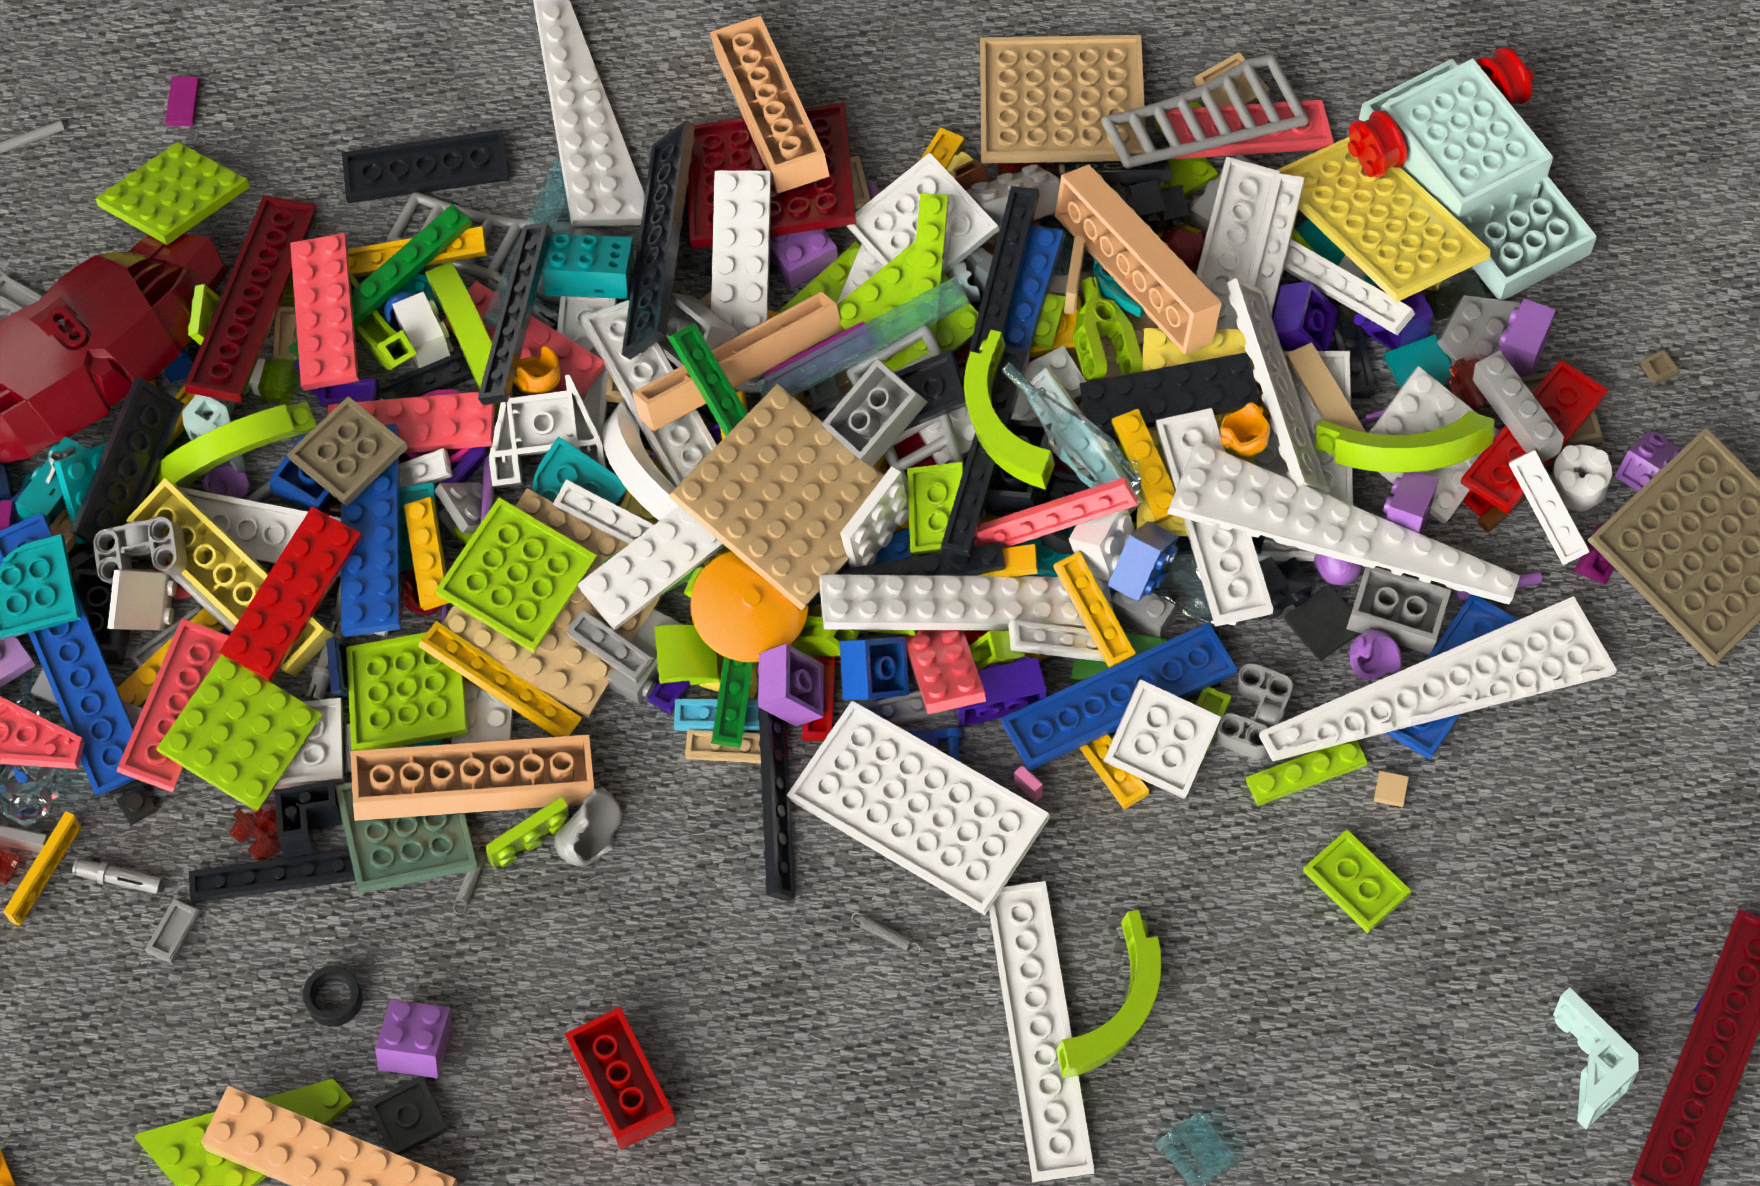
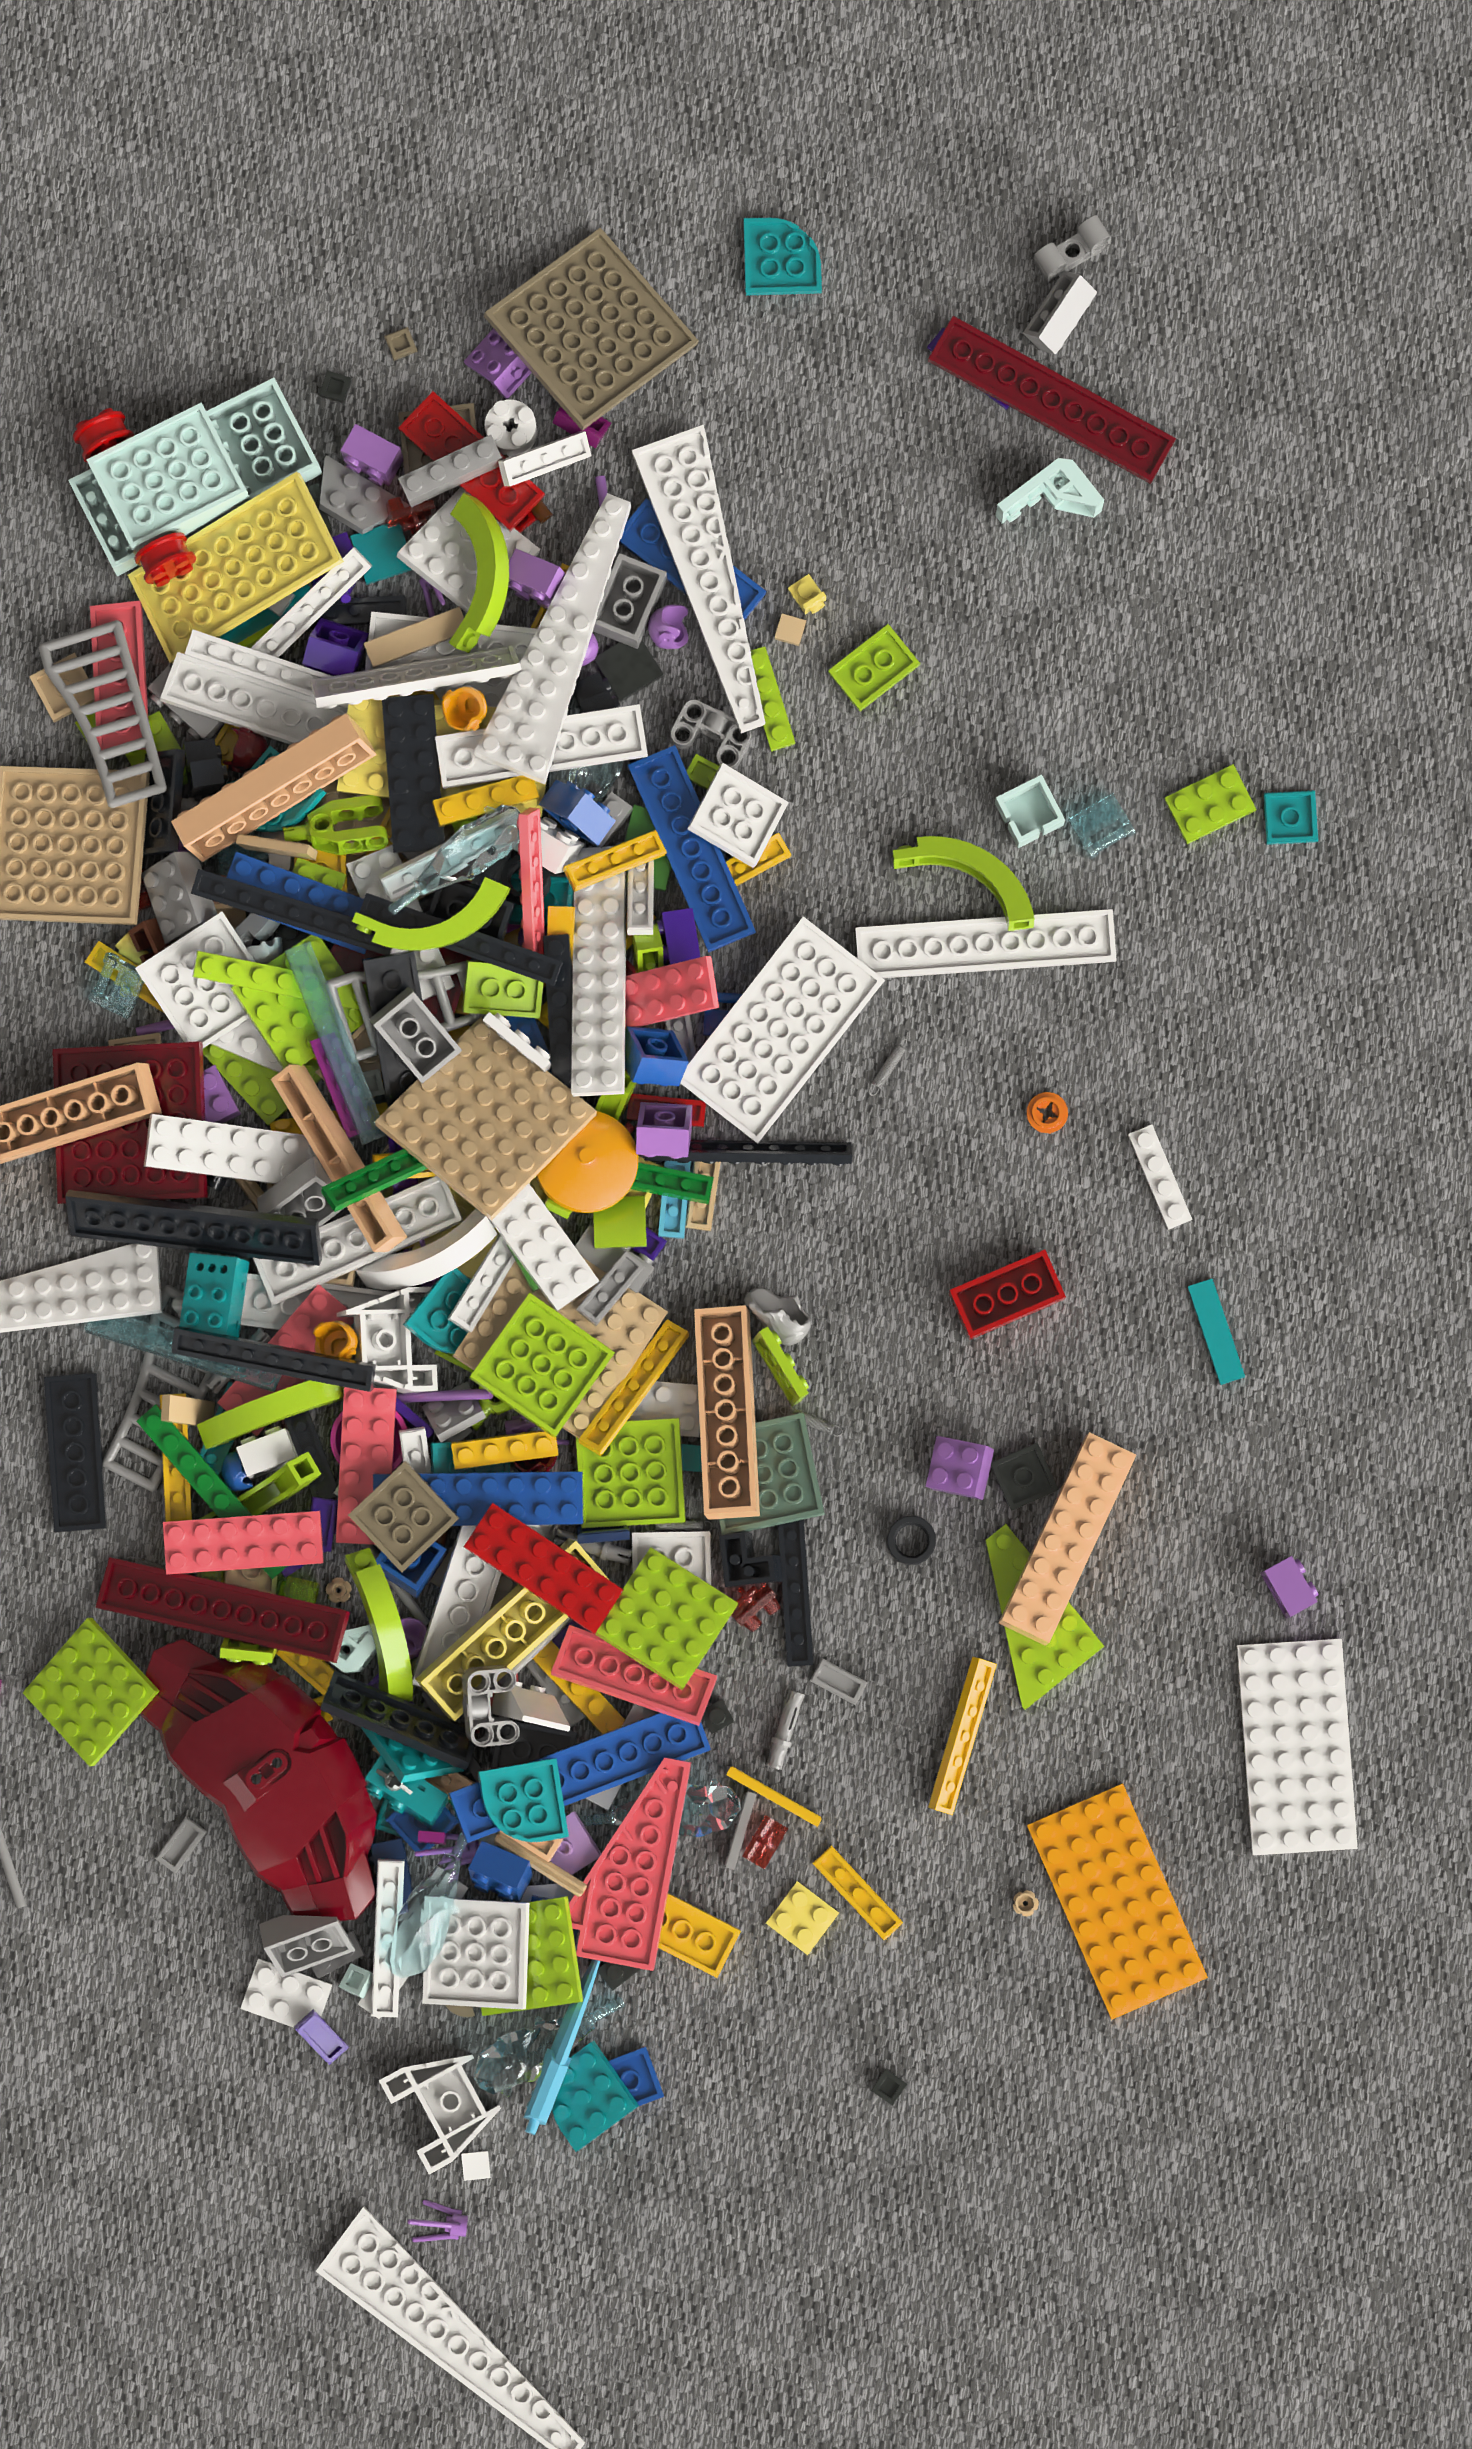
camera: 85 degrees left, 20 degrees up
(105, 1067) = (962, 1735): none -> yellow plate
(464, 246) = (186, 1410): none -> tan tile
(836, 1102) = (1058, 1107): none -> orange gear
(911, 151) = (125, 988): none -> clear light blue plate
(1028, 783) = (763, 934): bright pink tile -> none
(1205, 1066) = (1029, 810): none -> light aqua piece
(1434, 804) = (807, 595): none -> light yellow bracket
(1598, 306) = (335, 387): none -> pearl dark grey plate

